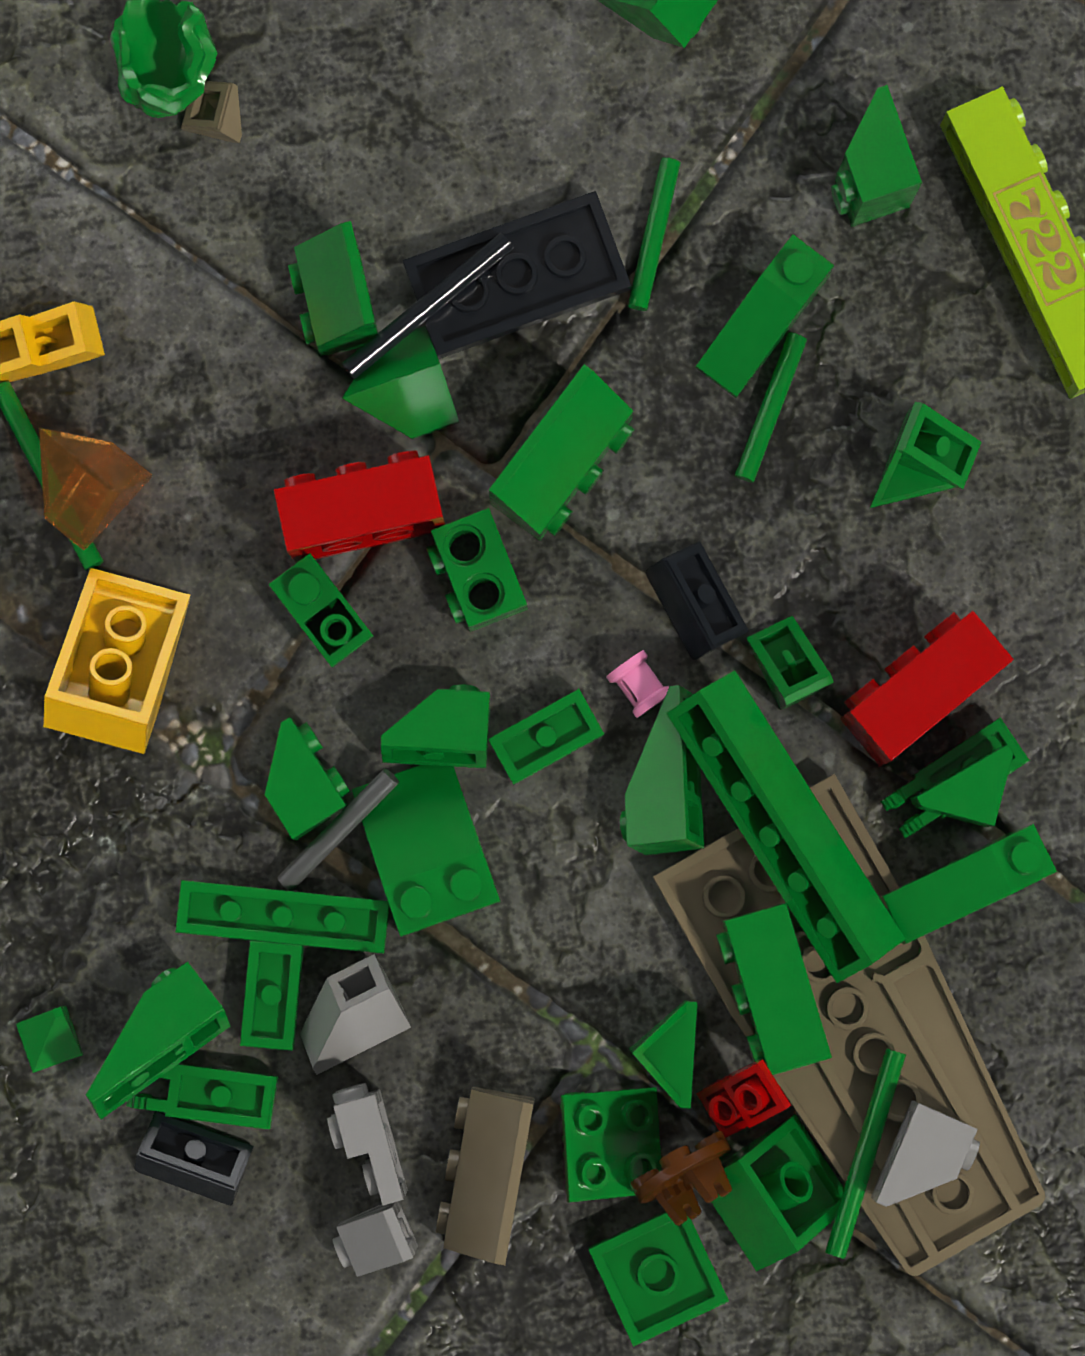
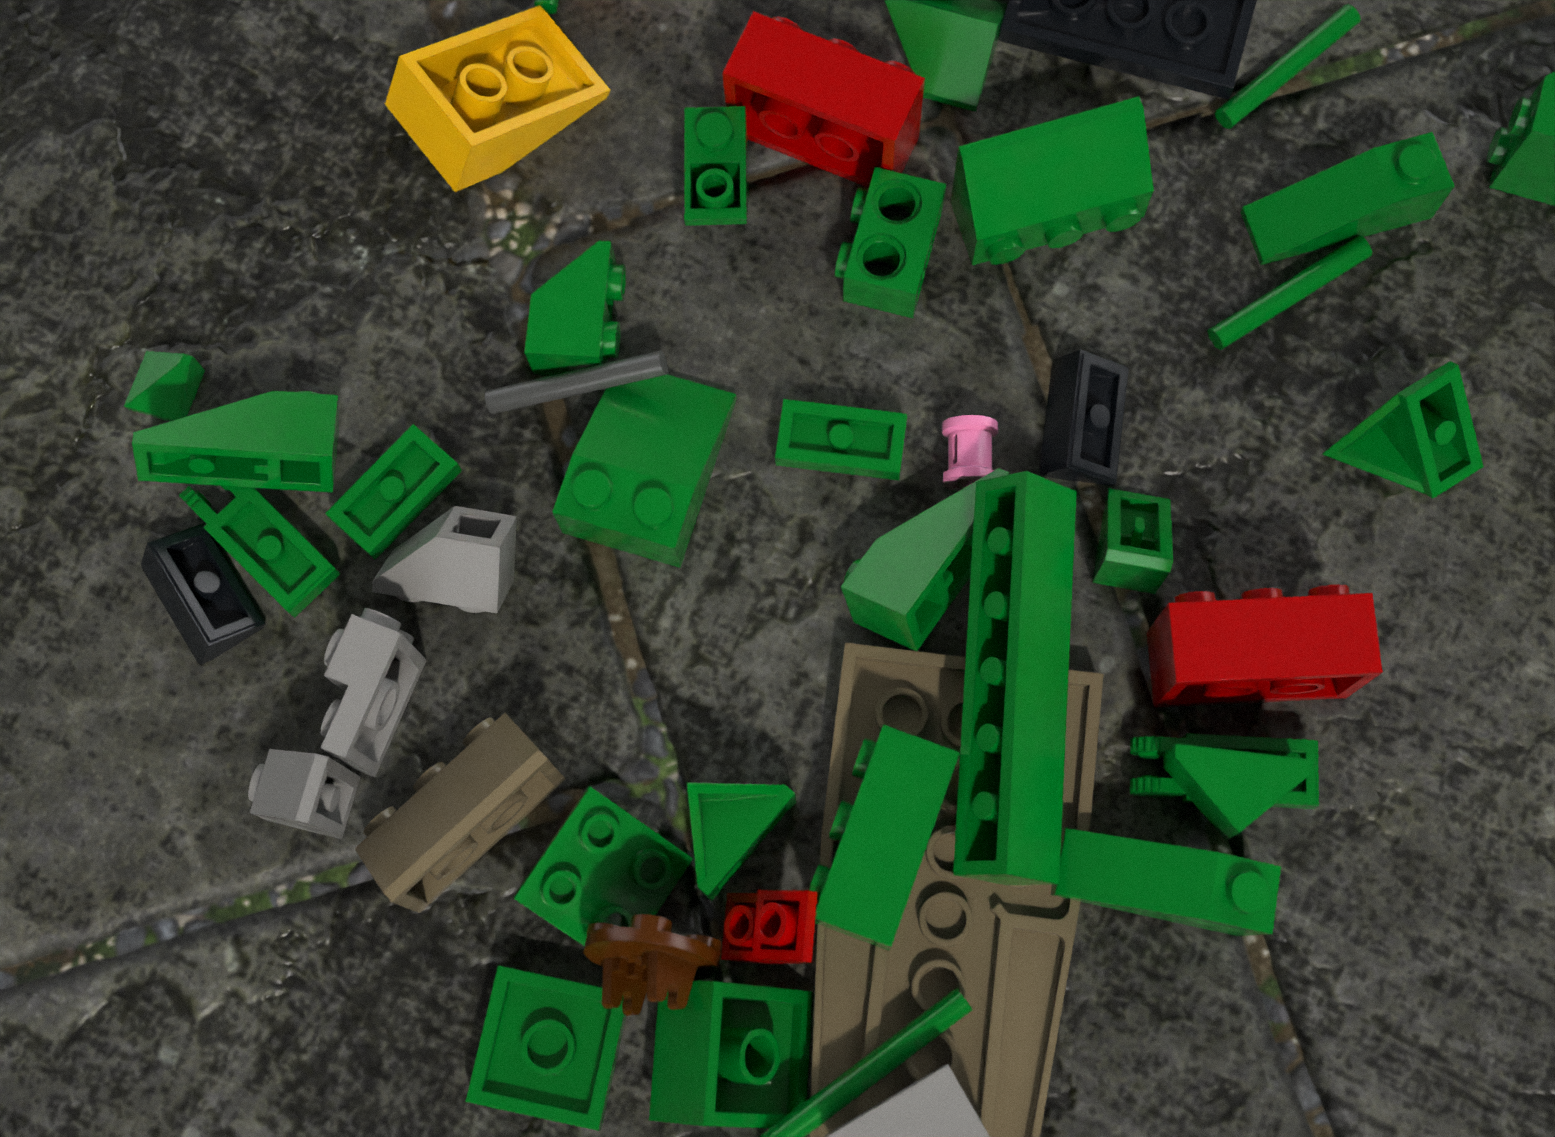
camera: 40 degrees right, 10 degrees down
(282, 916) = (462, 426): green plate -> none
(442, 730) = (744, 359): green slope -> none

